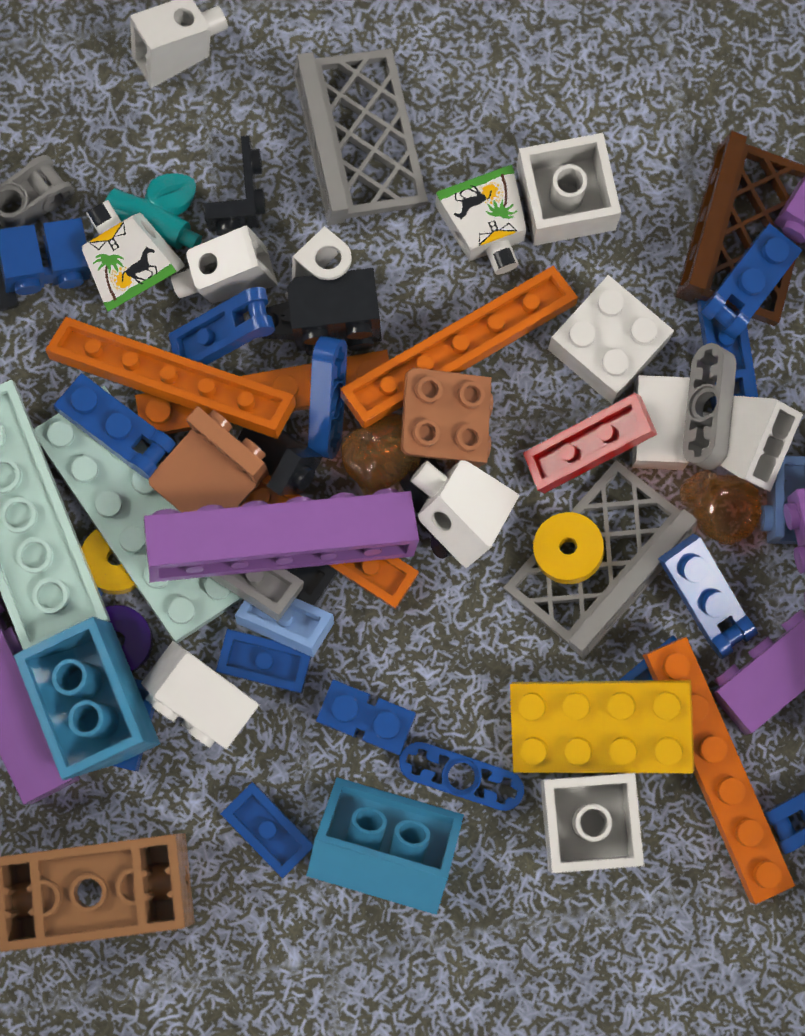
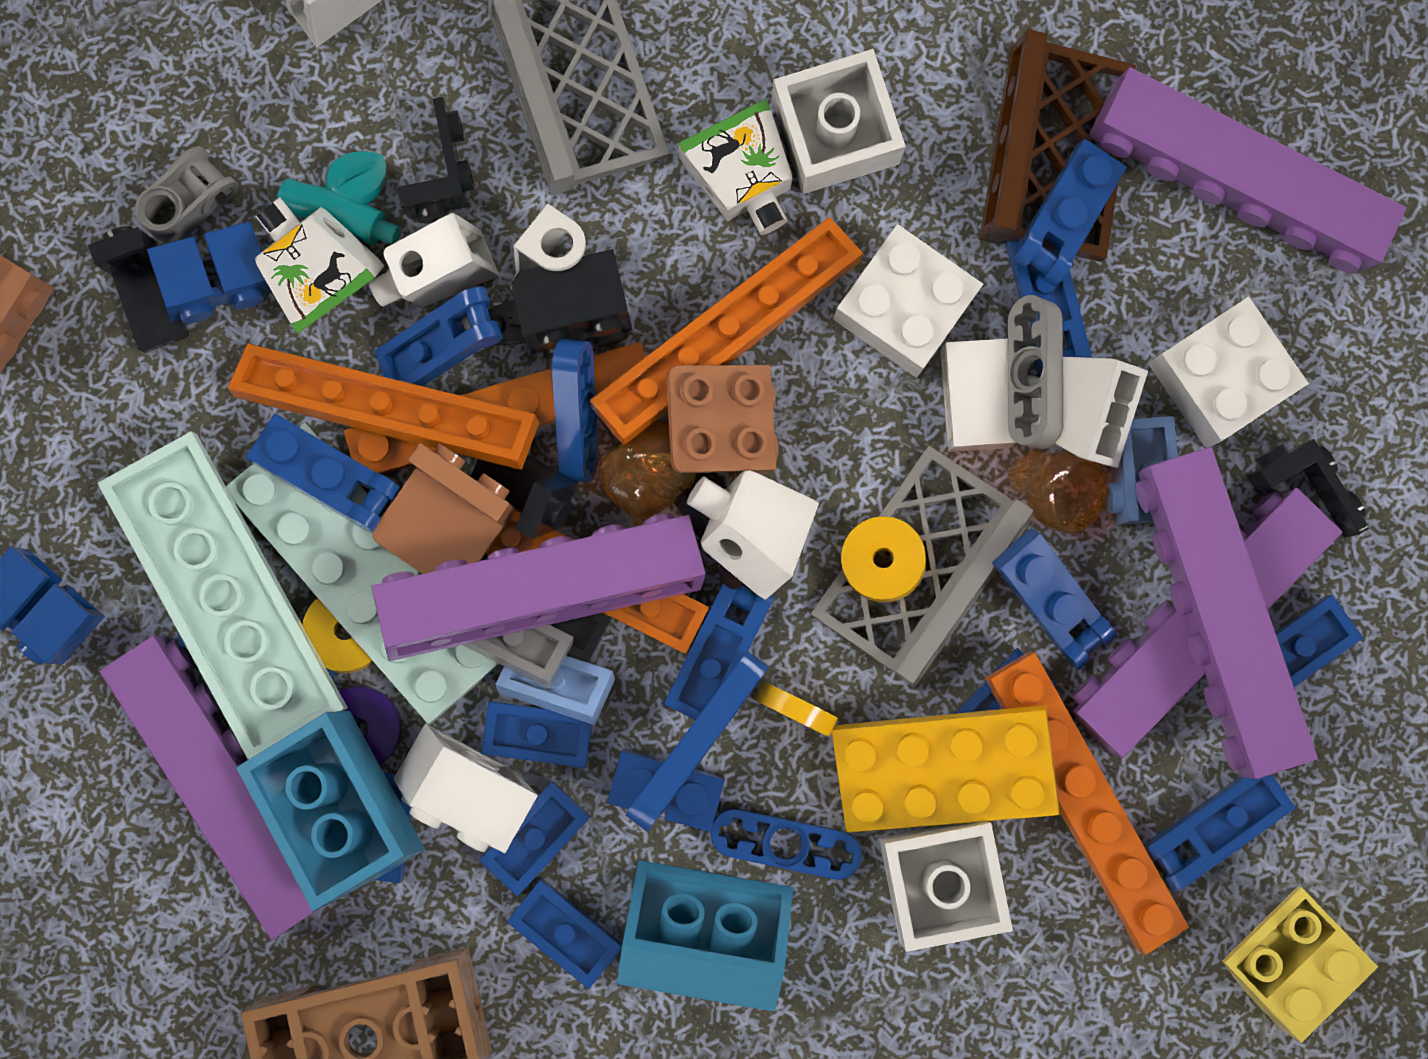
camera: 10 degrees left, 5 degrees up
(253, 748) = (541, 836): none -> blue plate
(396, 677) = (697, 741): none -> blue beam
(421, 612) = (716, 650): none -> blue plate
(482, 662) = (795, 708): none -> yellow piece
(589, 443) = (896, 431): plate -> none

